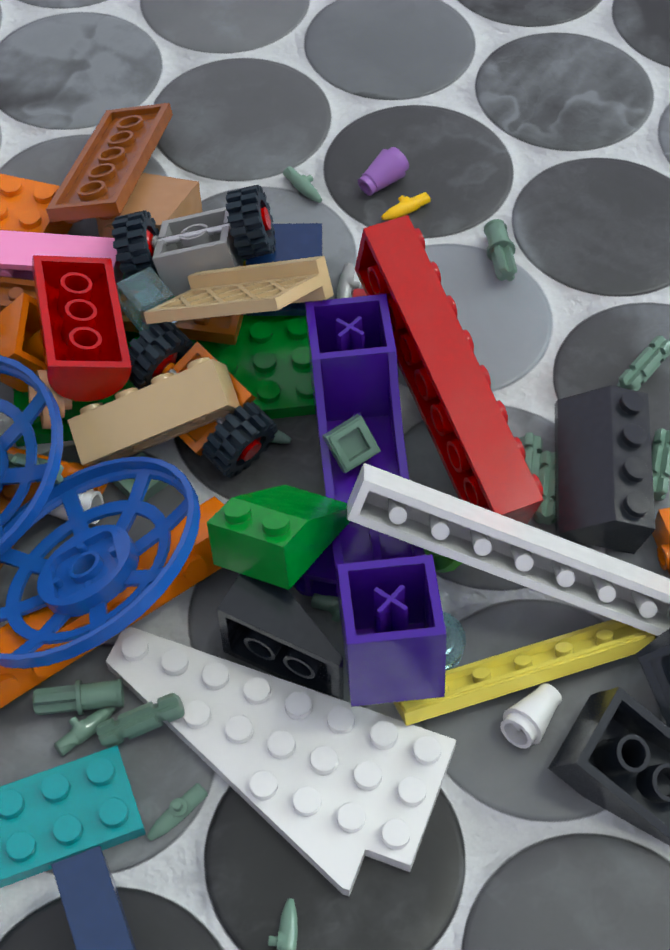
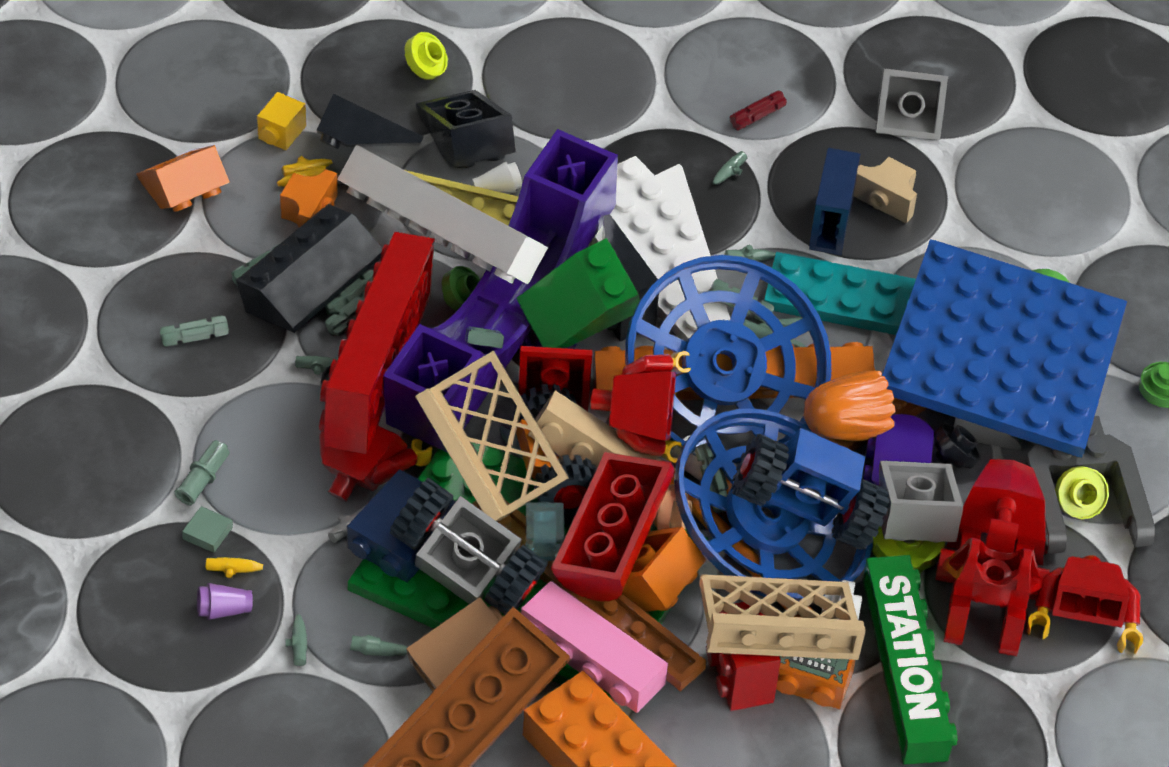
camera: 150 degrees left, 5 degrees down
(128, 439) = (643, 403): none -> red torso
(256, 450) = (556, 366): none -> red slope
(452, 219) = (207, 529): none -> sand green tile
(516, 400) = (316, 363): none -> sand green helmet

